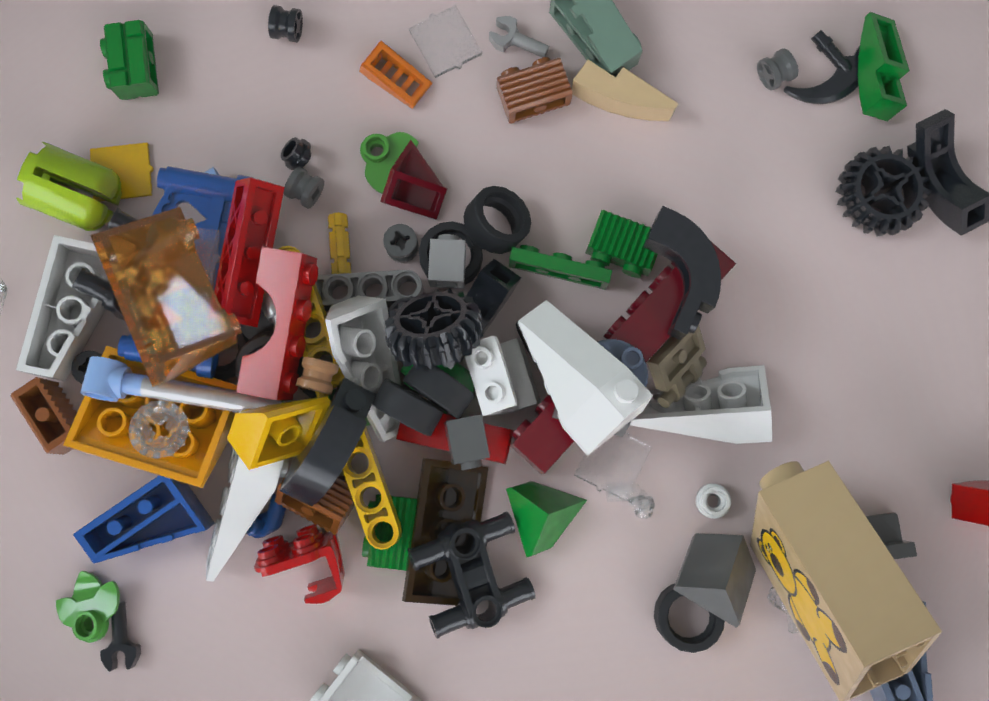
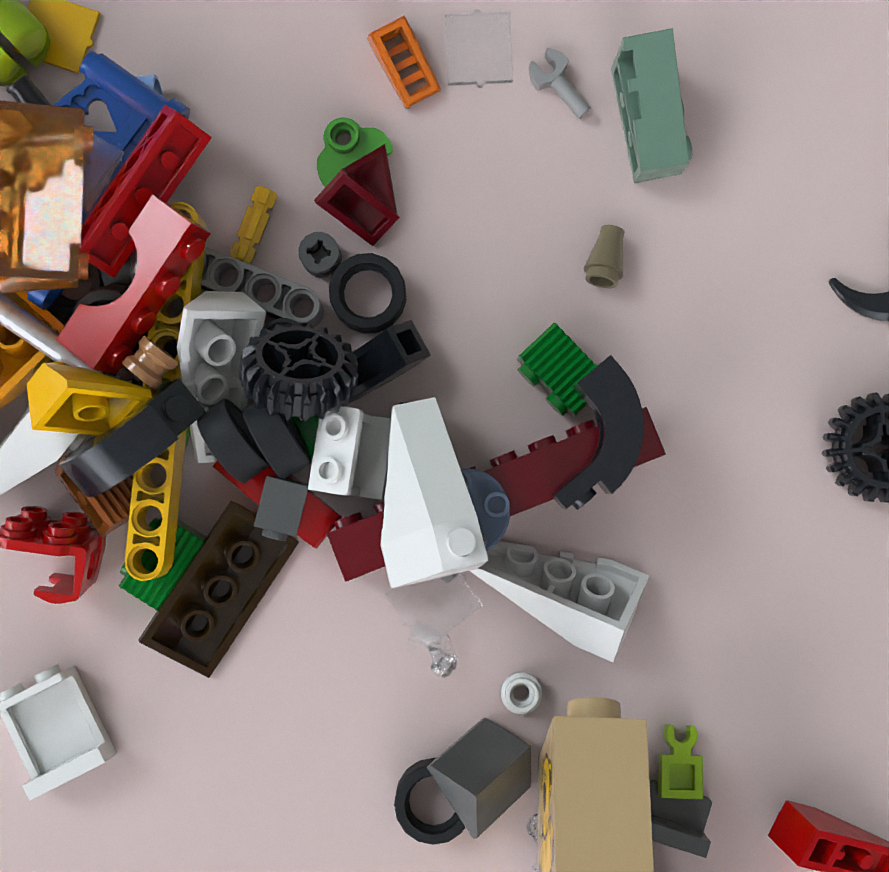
camera: 30 degrees right, 5 degrees up
(268, 521) = (39, 487): blue arm -> none
(296, 153) = (253, 101): black plate -> none
(304, 187) = (243, 143): dark grey wheel -> none
(447, 262) = (355, 301): light grey brick -> none
(472, 574) = (224, 647): black piece -> none
(484, 233) = (458, 269): black tyre -> none
(534, 89) = (548, 150): dark orange brick -> none
(541, 514) = (330, 619): green slope -> none
(560, 266) = (479, 361): green plate -> none
(616, 151) = (606, 258): none -> dark tan cone
(622, 94) = (642, 201): tan slope -> none
(677, 366) = (550, 533): dark tan plate -> none
(777, 69) = (832, 254): dark grey wheel -> none
(866, 495) = (680, 772): none -> lime plate

